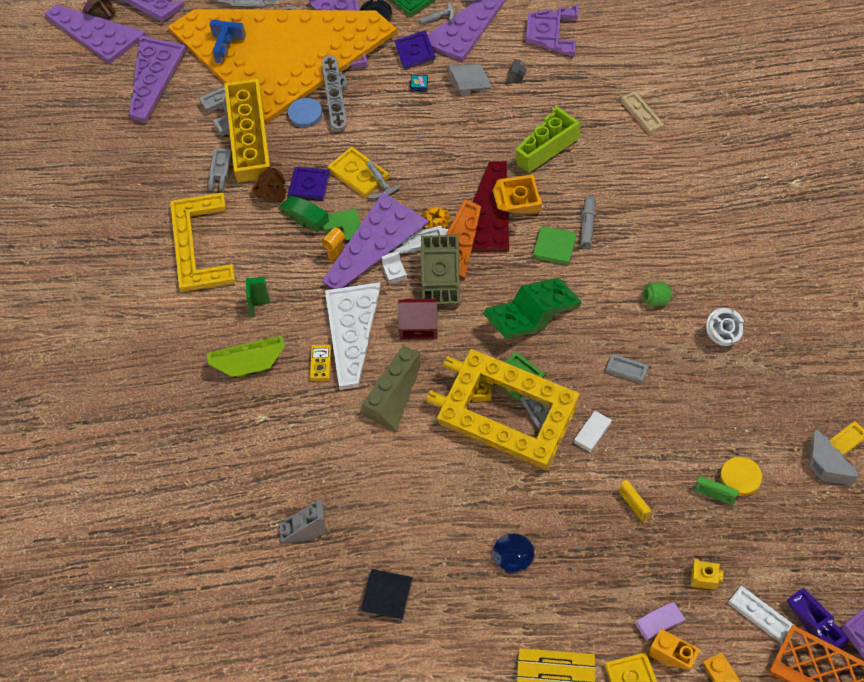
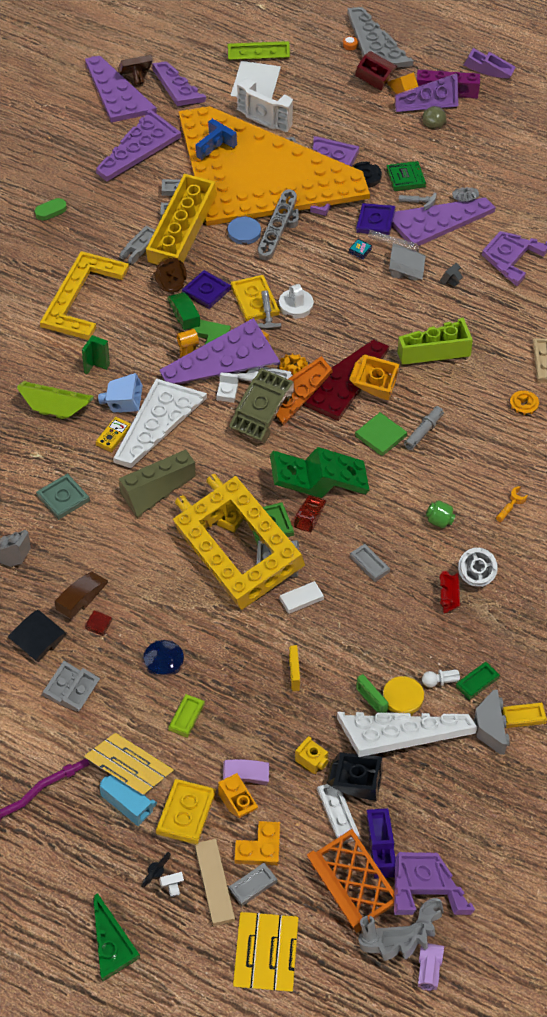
camera: 25 degrees right, 5 degrees down
(111, 173) = (50, 209): none -> bright green tile
(306, 320) = (123, 394): none -> light blue torso
(315, 446) = (63, 496): none -> sand green tile
(398, 159) = (296, 302): none -> white tile
(399, 533) = (80, 594): none -> reddish brown slope
(418, 319) = (215, 436): slope -> none
(432, 551) = (98, 623): none -> clear red tile
(444, 63) = (390, 240): none -> clear tile
(450, 626) = (70, 686): none -> light grey slope
(549, 359) = (308, 515): none -> clear red slope
(571, 597) = (186, 715): none -> lime tile
(659, 154) = (521, 397): none -> light orange gear
(705, 258) = (515, 499): none -> light orange piece
(714, 360) = (450, 592): none -> red hinge
(752, 448) = (430, 678): none -> white axle
(757, 572) = (356, 775): none -> black slope
(760, 512) = (401, 730): none -> white wing
(789, 429) = (477, 680): none -> green tile

